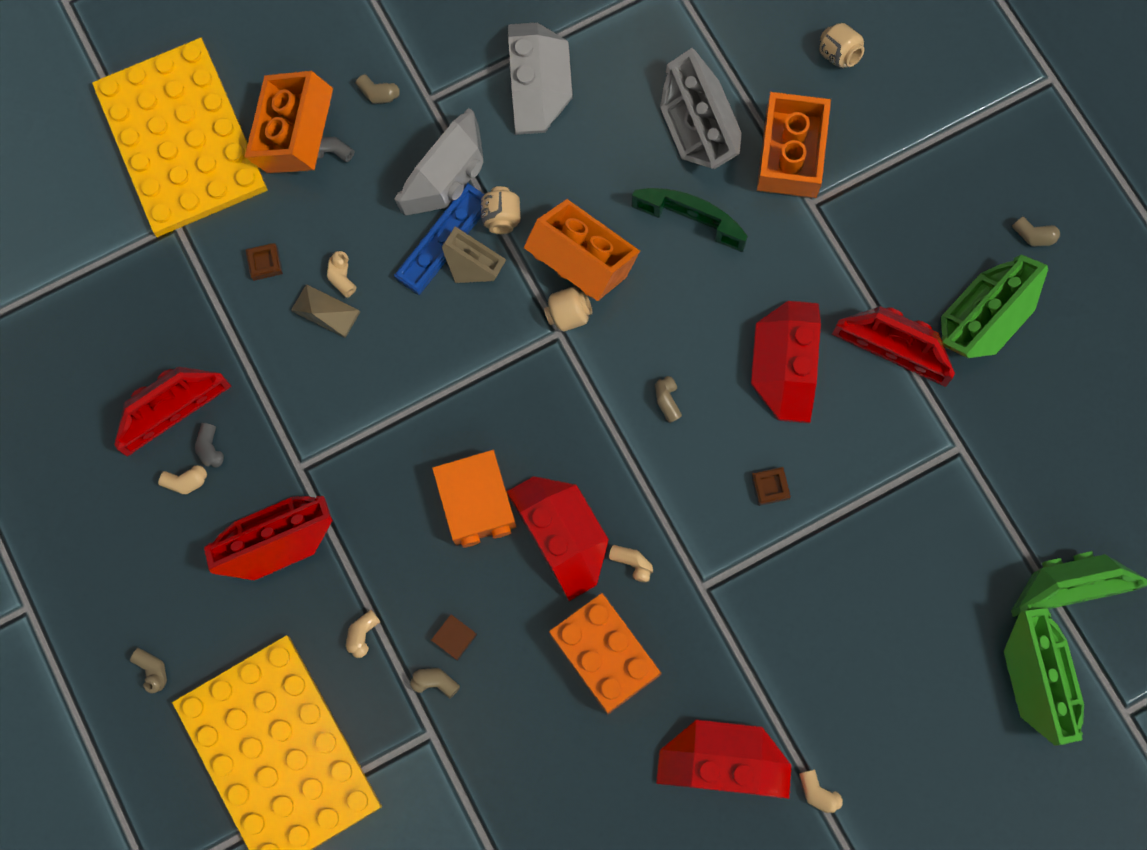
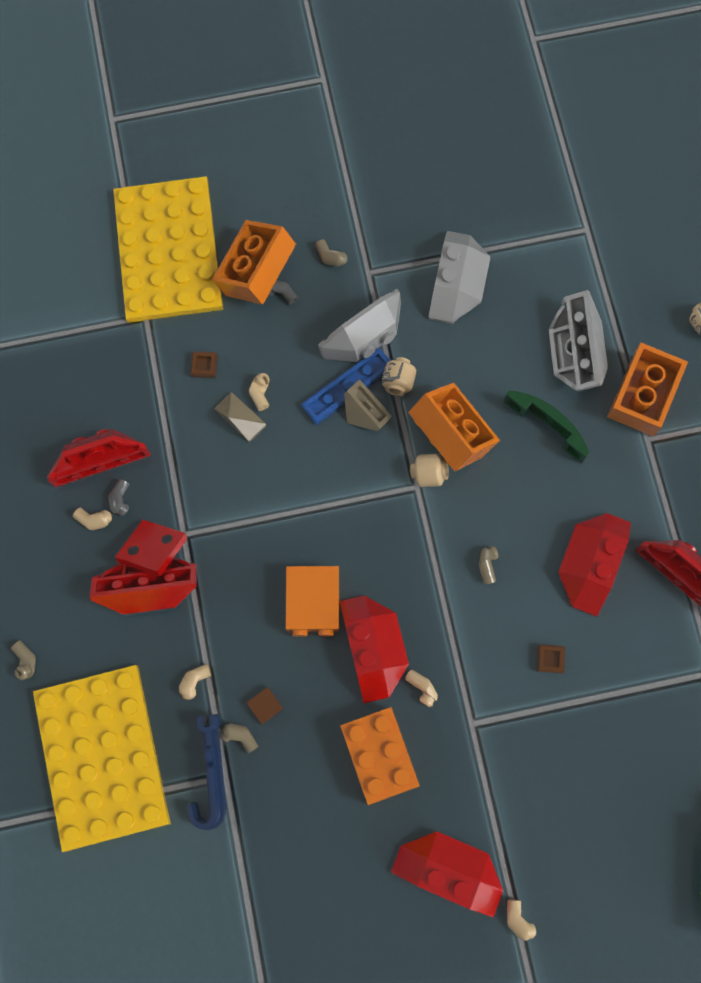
camera: 15 degrees right, 0 degrees up
(264, 492) = (151, 548): none -> red tile
(417, 734) = (214, 775): none -> dark blue piece

